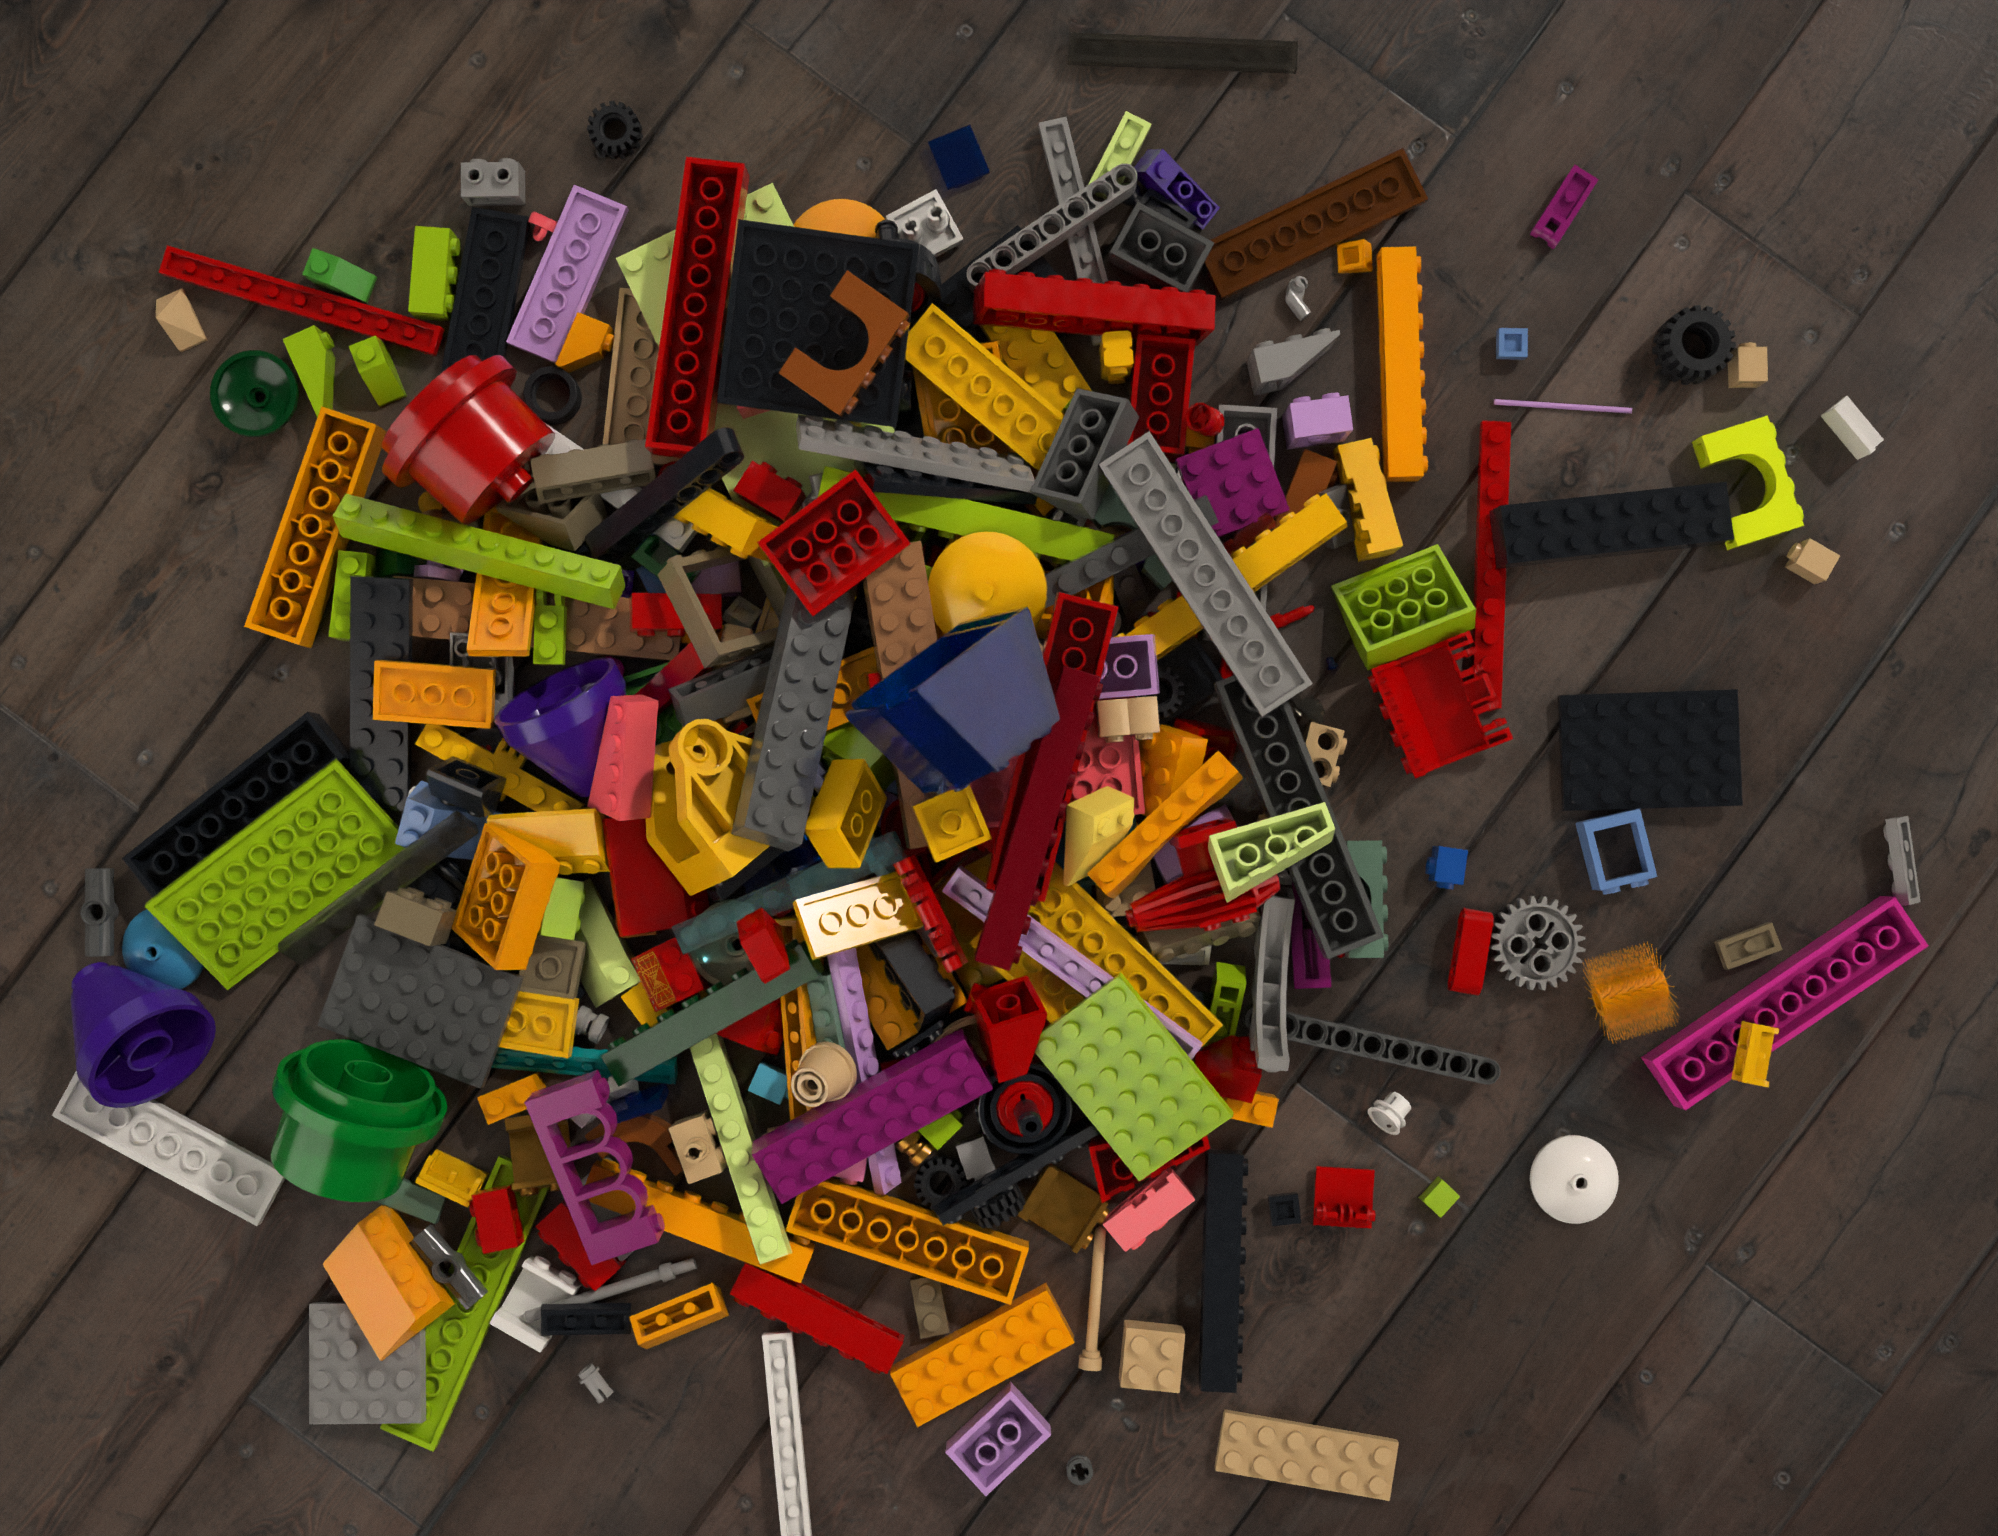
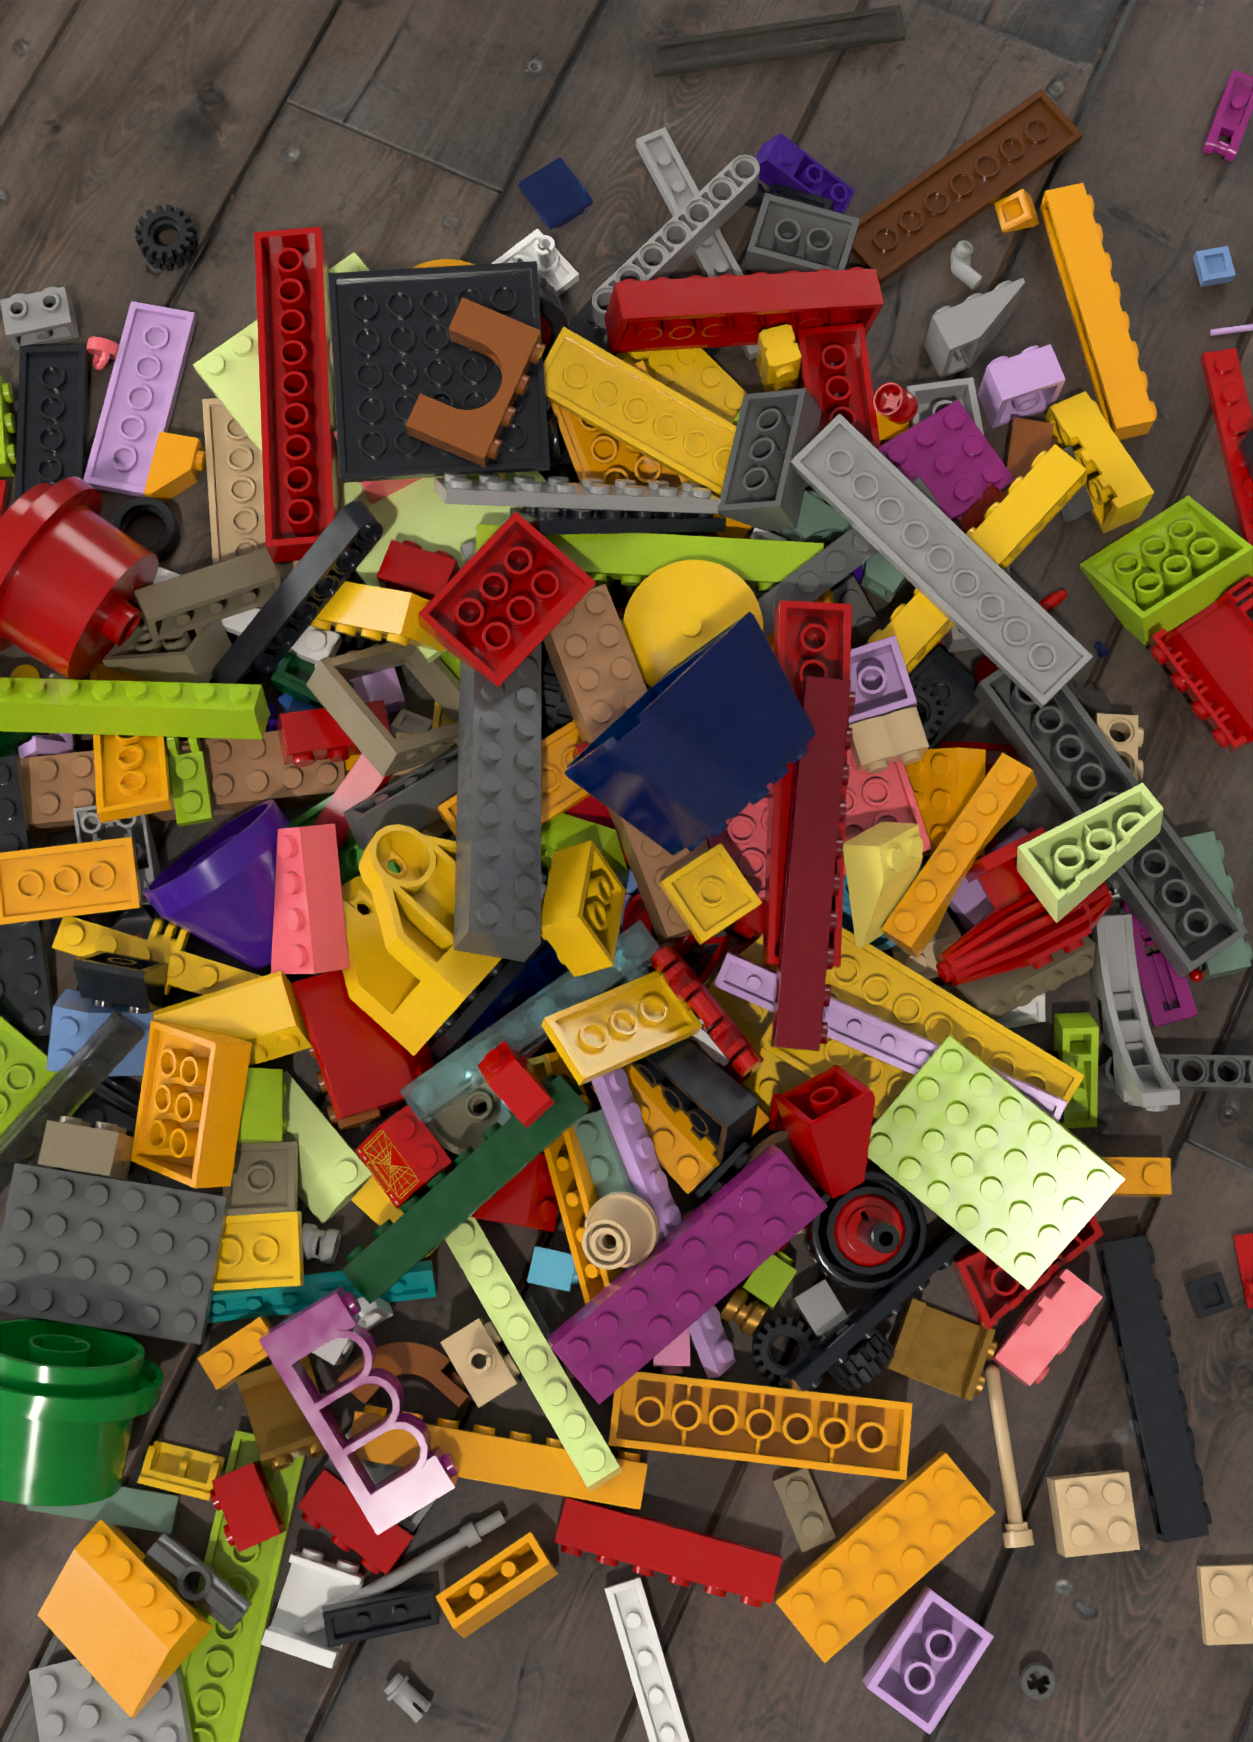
camera: 10 degrees left, 10 degrees down
(640, 1102) = (397, 1324): clear blue plate -> none
(1123, 146) = (736, 140): yellowish green plate -> none
(1230, 1068) = (1109, 1129): red slope -> none

